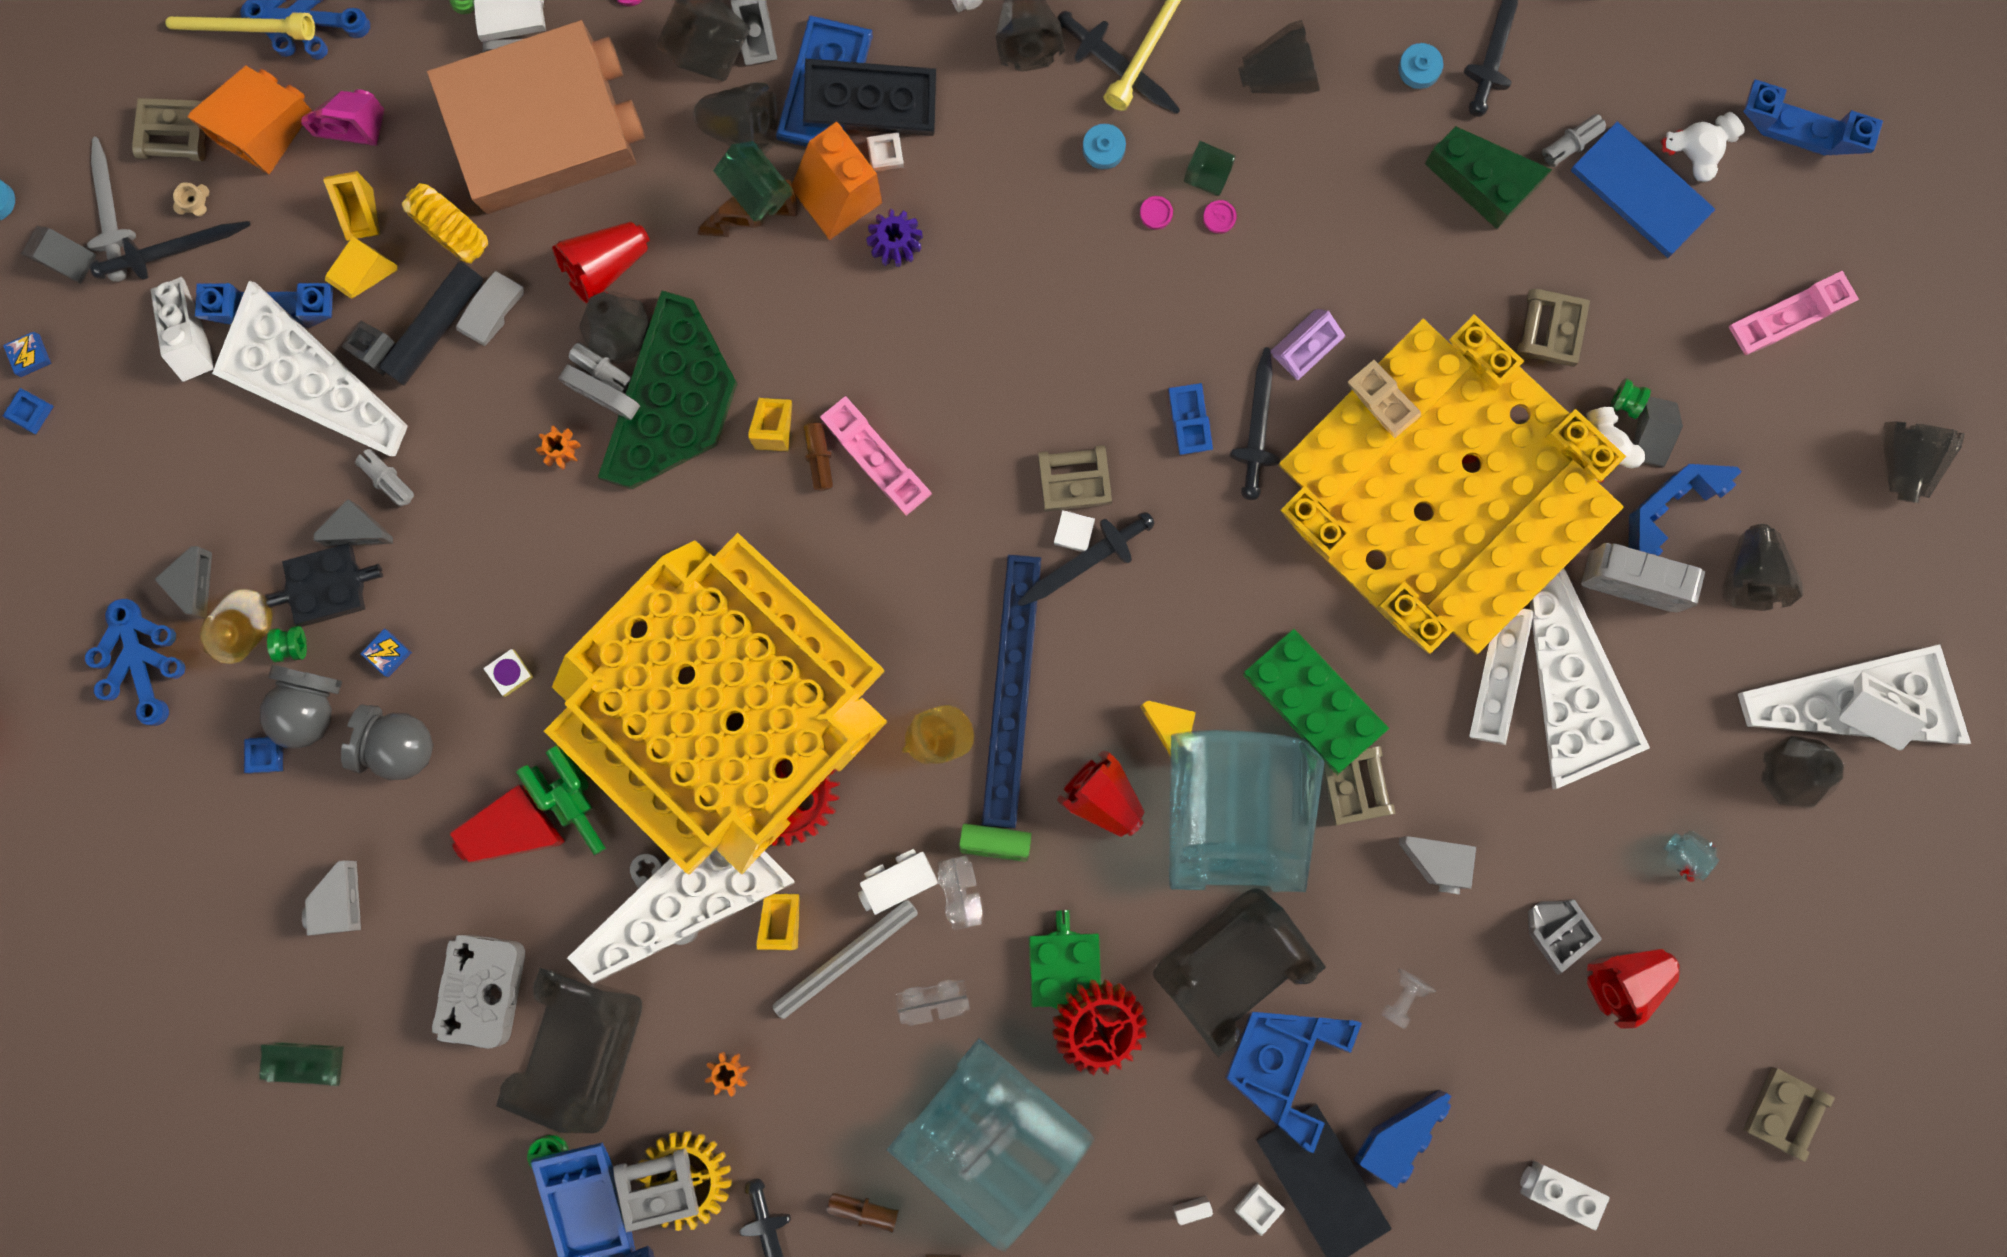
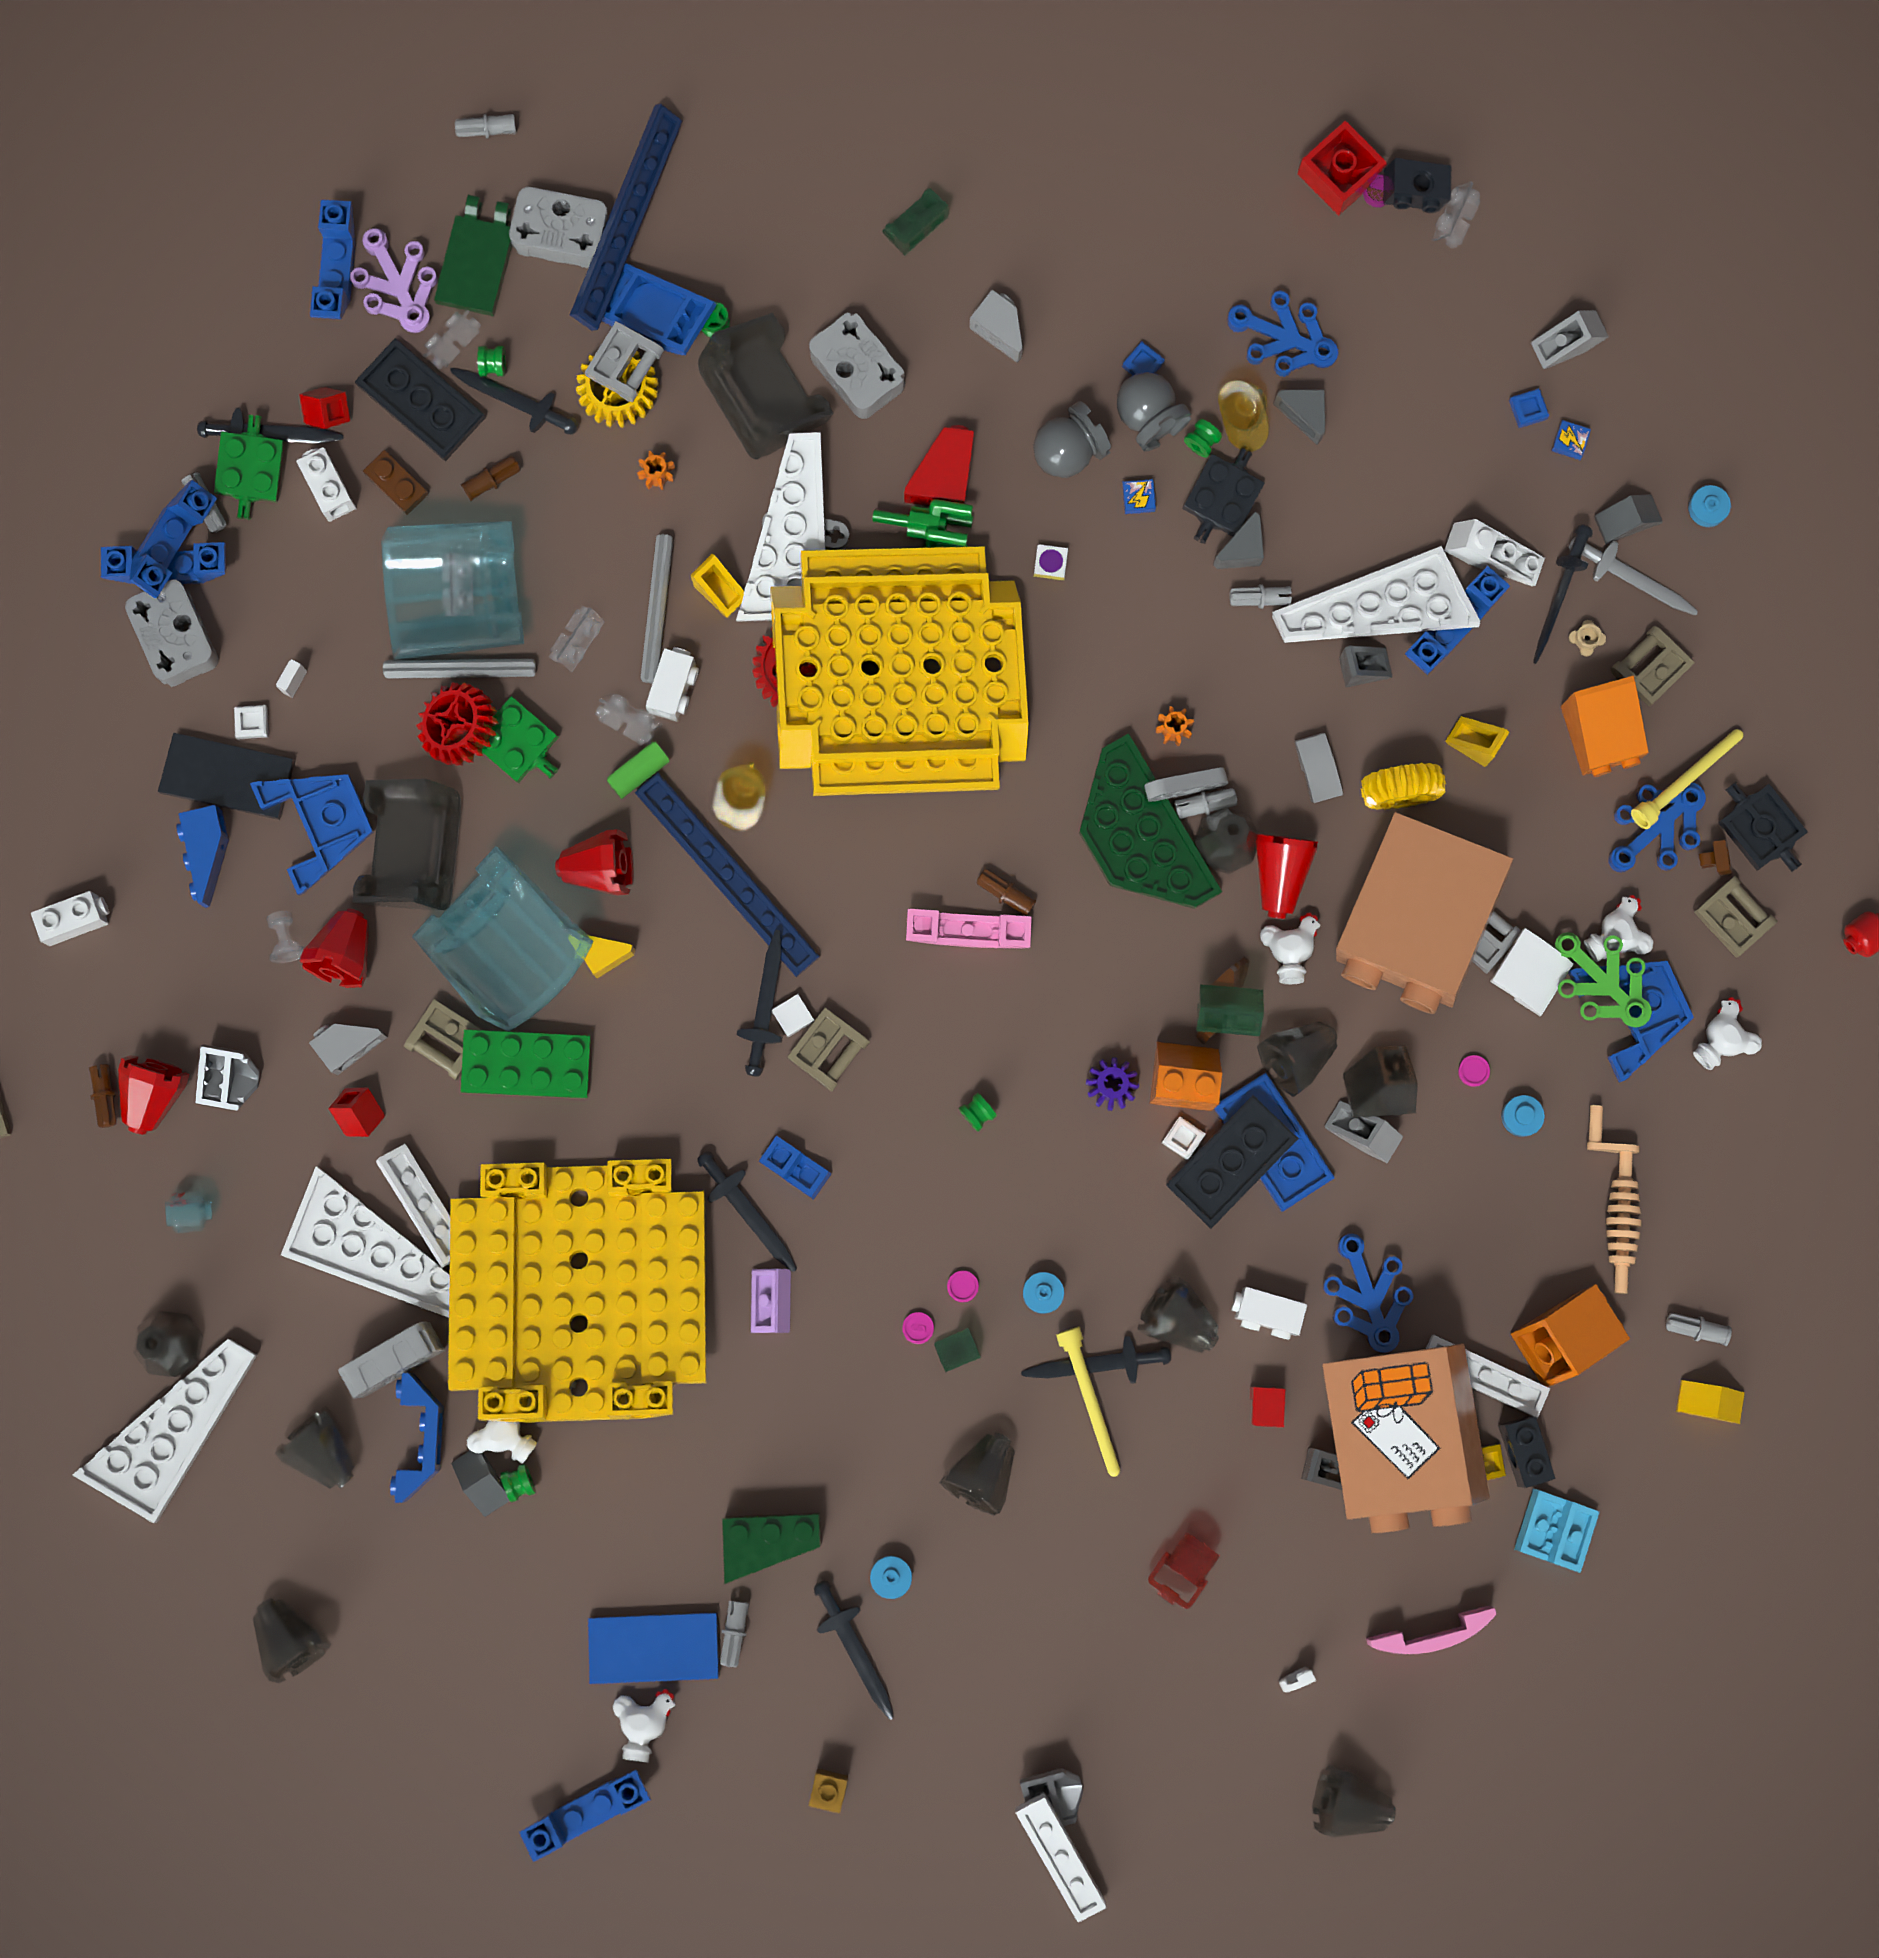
camera: 130 degrees right, 0 degrees up
(347, 117) = (1548, 792): dark pink slope -> none
(358, 268) = (1423, 703): yellow slope -> none
(431, 323) = (1341, 719): black brick -> none
(656, 200) = (1292, 947): none -> white animal
(771, 424) = (1058, 881): yellow slope -> none
(1013, 318) = (977, 1112): none -> green wheel
(1050, 1076) = (459, 668): none -> light grey axle
(1371, 940) = (339, 950): none -> red cone
(1383, 398) = (675, 1297): tan slope -> none
(1482, 799) = (356, 1112): none -> red panel
(1564, 328) = (609, 1487): dark tan plate -> none
(1672, 1018) = (103, 1096): none -> reddish brown axle
(1793, 313) = (466, 1658): bright pink slope -> none
(1884, 712) = (149, 1434): white panel -> none

